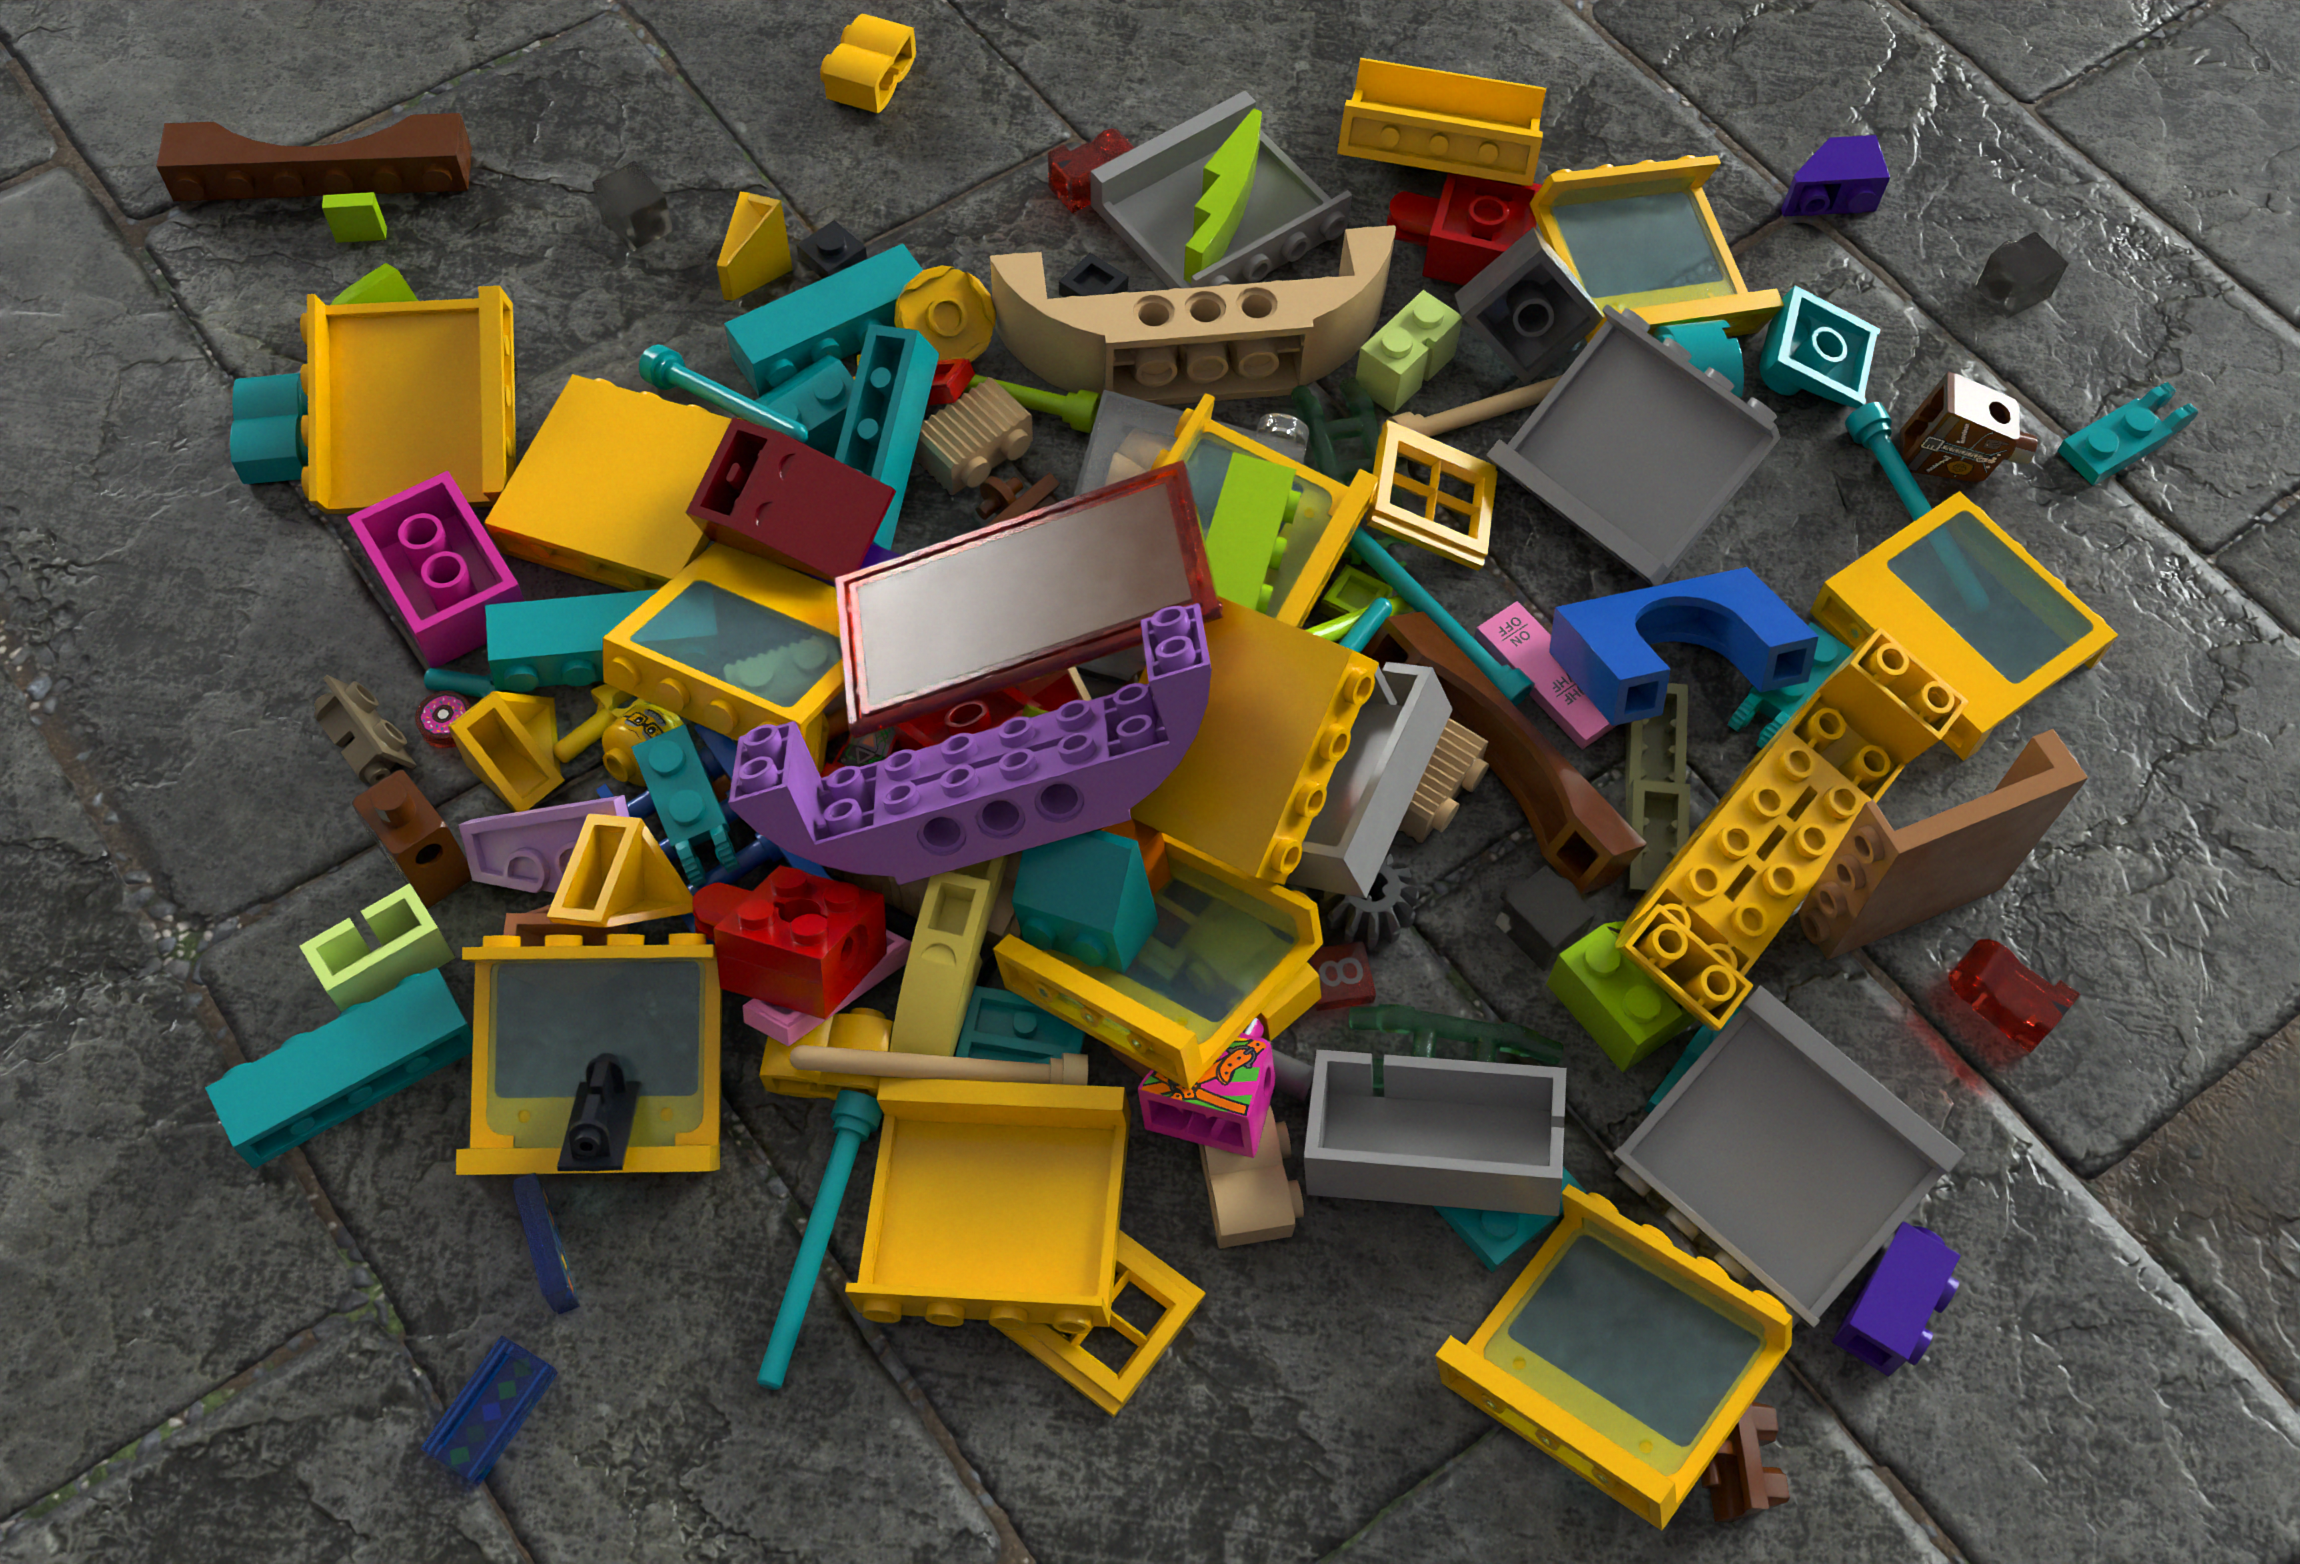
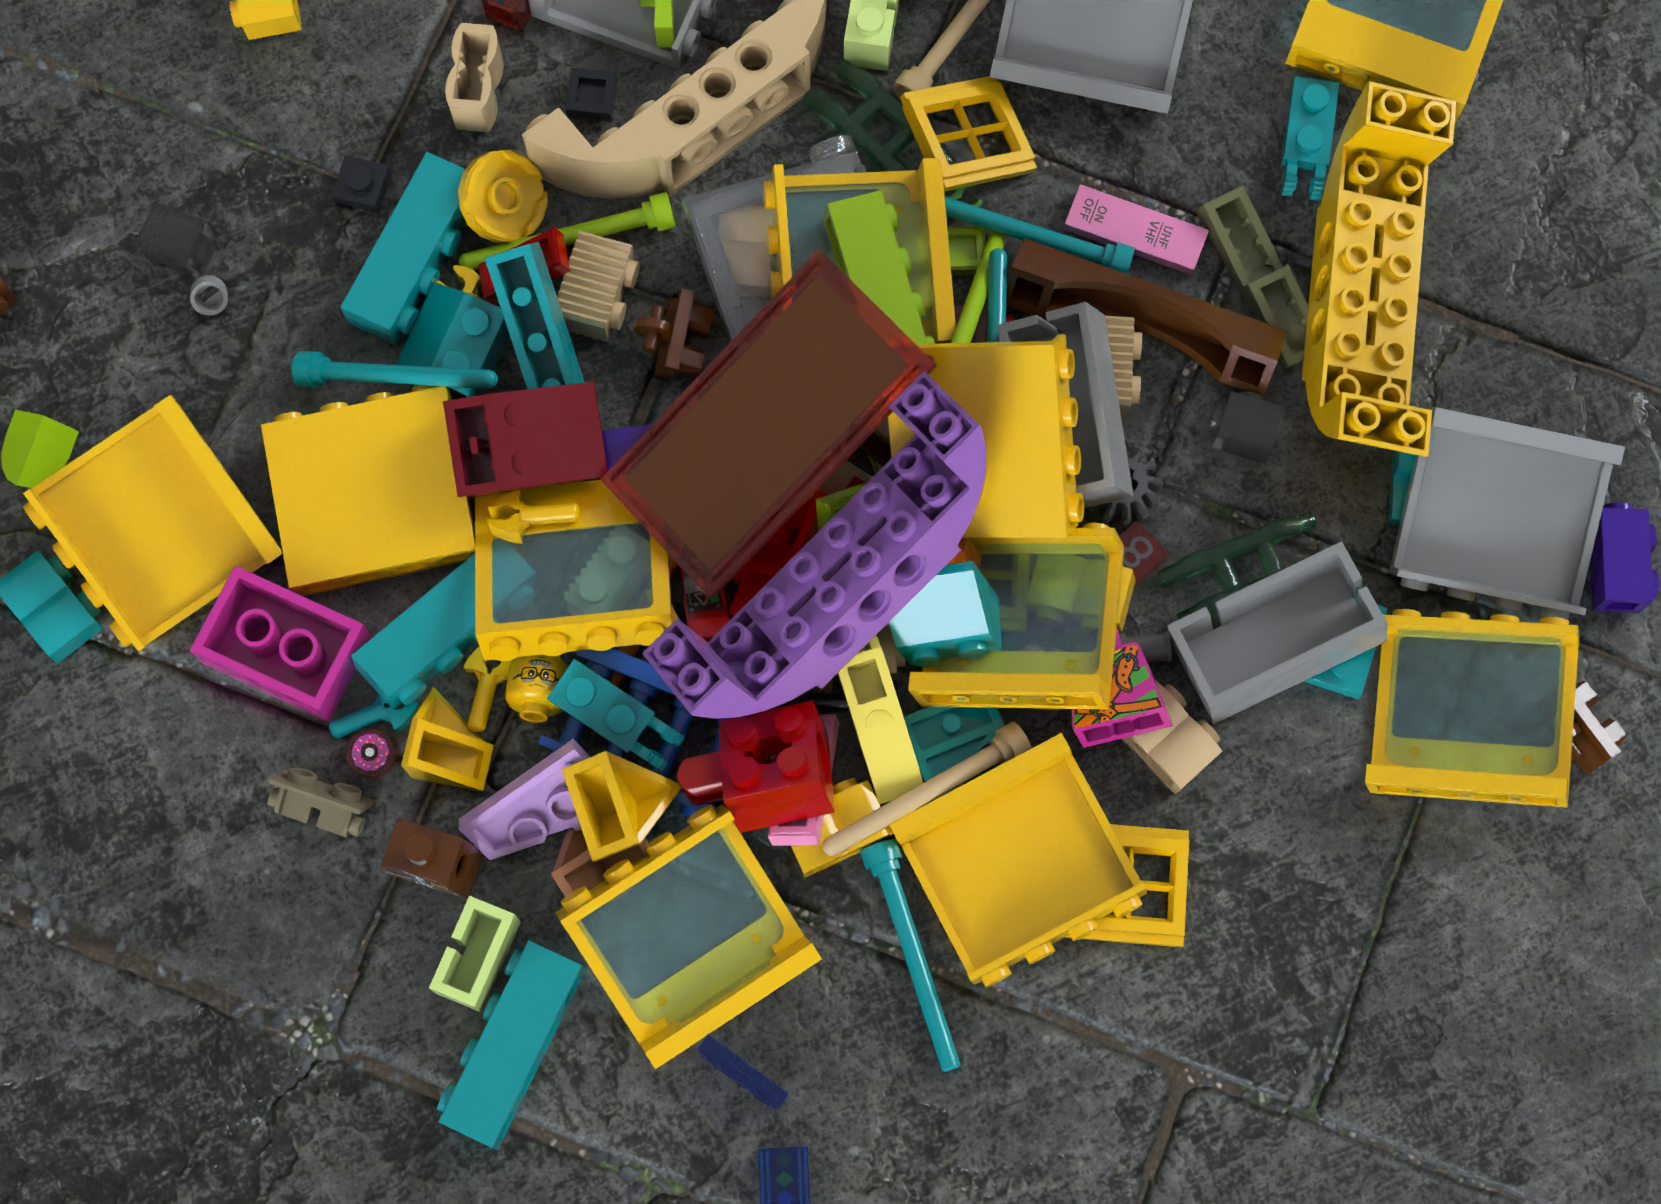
camera: 30 degrees left, 15 degrees up
(600, 1118) = (728, 973): black hinge -> none
(624, 251) = (214, 300): none -> light grey hinge
(736, 567) = (523, 516): none -> yellow bar
(754, 246) = (304, 216): yellow slope -> none
(994, 212) = (474, 77): none -> tan brick
(1615, 998) = (1325, 462): lime slope -> none
(1733, 612) = (1232, 109): blue arch -> none
(1908, 875) = (1514, 194): medium nougat panel -> none
(2010, 993) = (1581, 293): clear red leg -> none

